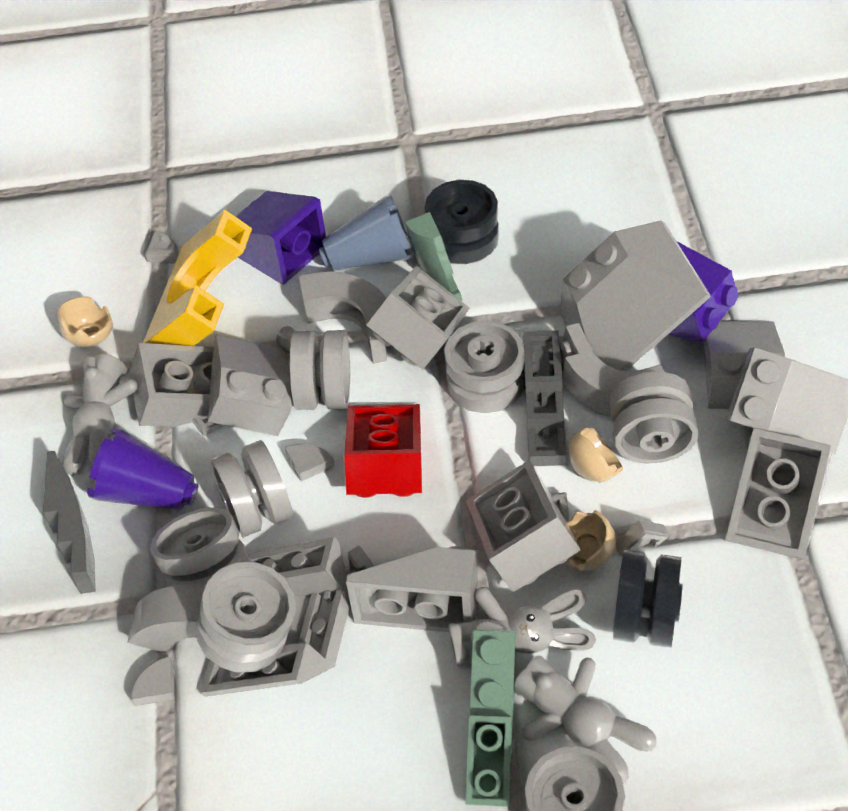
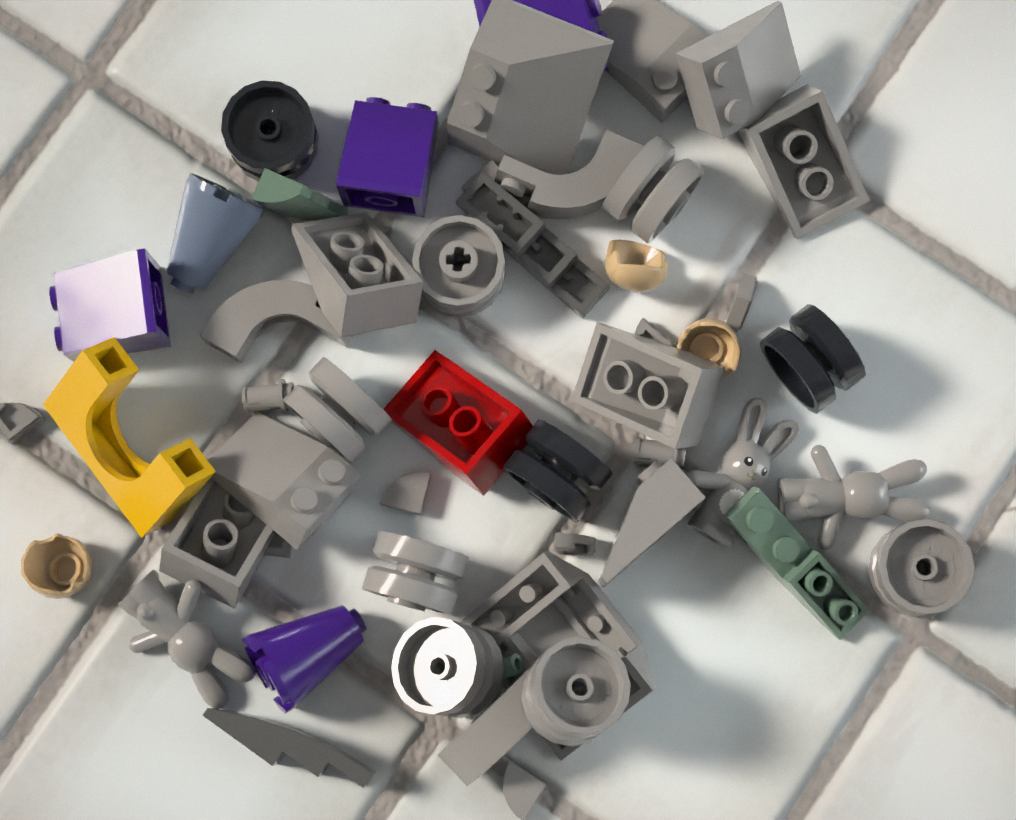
camera: 50 degrees left, 30 degrees up
(401, 512) = (553, 476): none -> black wheel
(489, 577) = (649, 451): none -> light grey pin
(509, 282) = (388, 157): none -> dark purple slope

